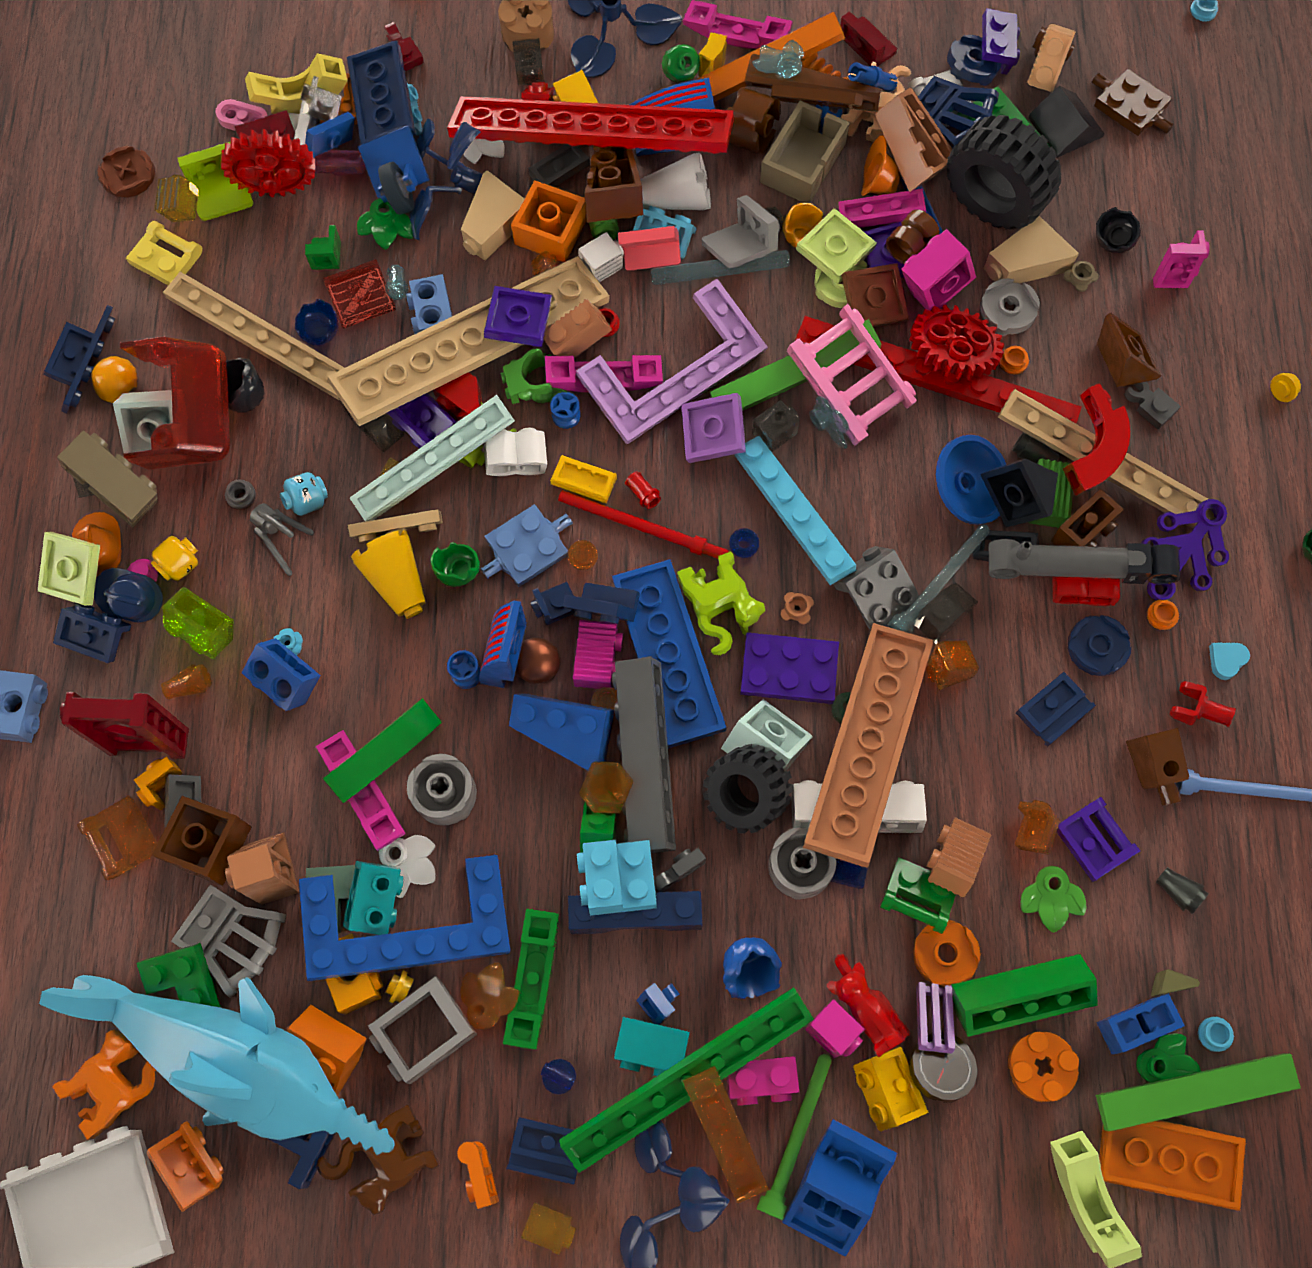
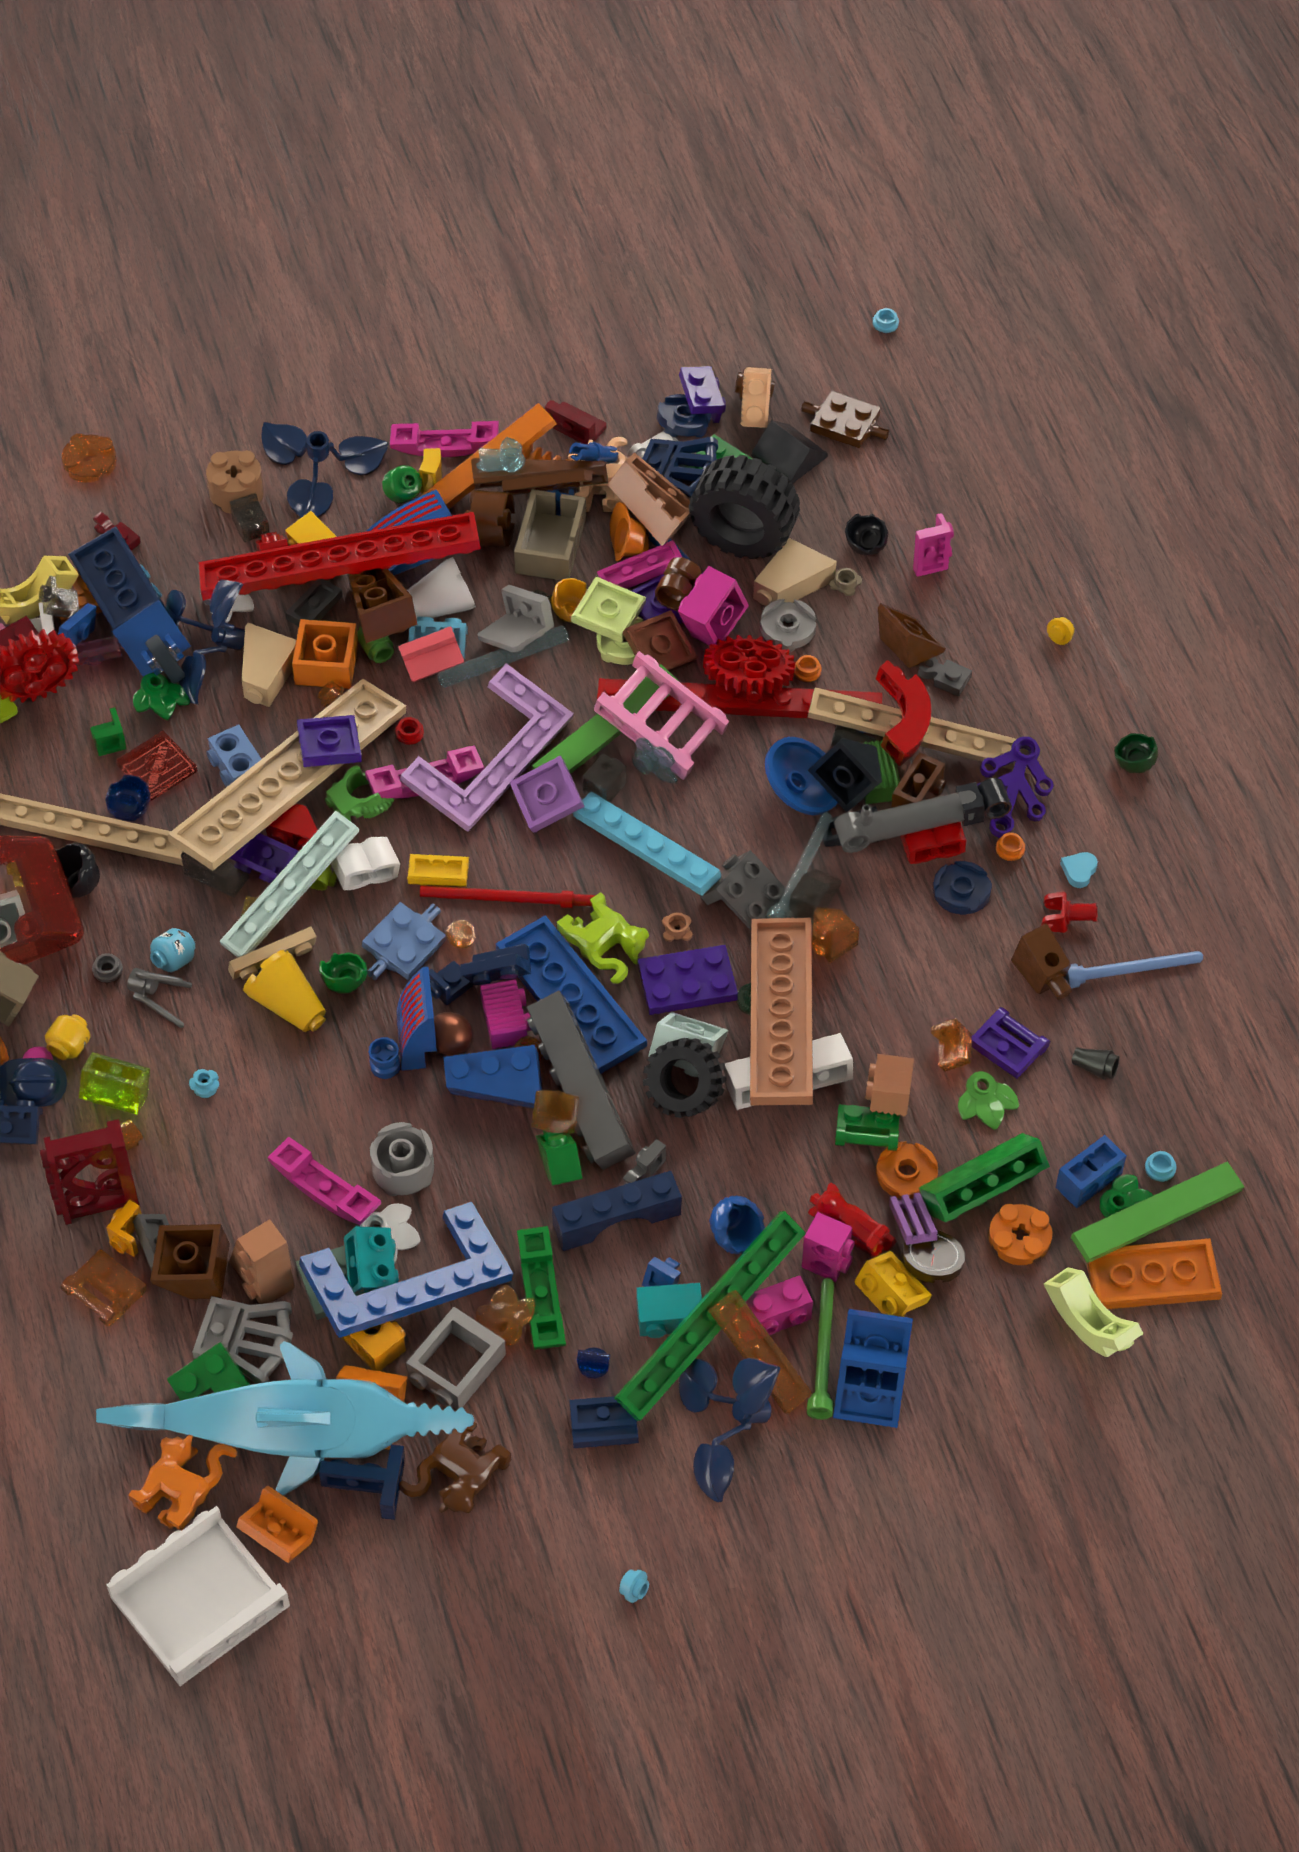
camera: 20 degrees left, 15 degrees down
(280, 674) = (212, 1100): blue brick -> none
(382, 751) = (332, 1144): green slope -> none
(396, 285) = (194, 748): clear light blue pin -> none
(399, 987) = (420, 1330): yellow plate -> none
(481, 1186) = (551, 1444): orange plate -> none
(549, 1228) = (628, 1482): clear yellow bracket -> none
(566, 403) = (401, 809): blue wheel -> none
(576, 330) = (388, 740): nougat brick -> none
(602, 256) = (387, 672): white brick -> none
(617, 877) = (591, 1175): medium azure plate -> none
(648, 496) = (503, 868): red pin -> none
(744, 535) = (609, 879): clear blue plate -> none
(796, 881) = (753, 1132): light grey brick -> none
(849, 874) = (798, 1126): clear blue plate -> none
(1055, 709) = (939, 948): dark blue plate -> none
(1171, 981) = (1115, 1131): olive slope -> none

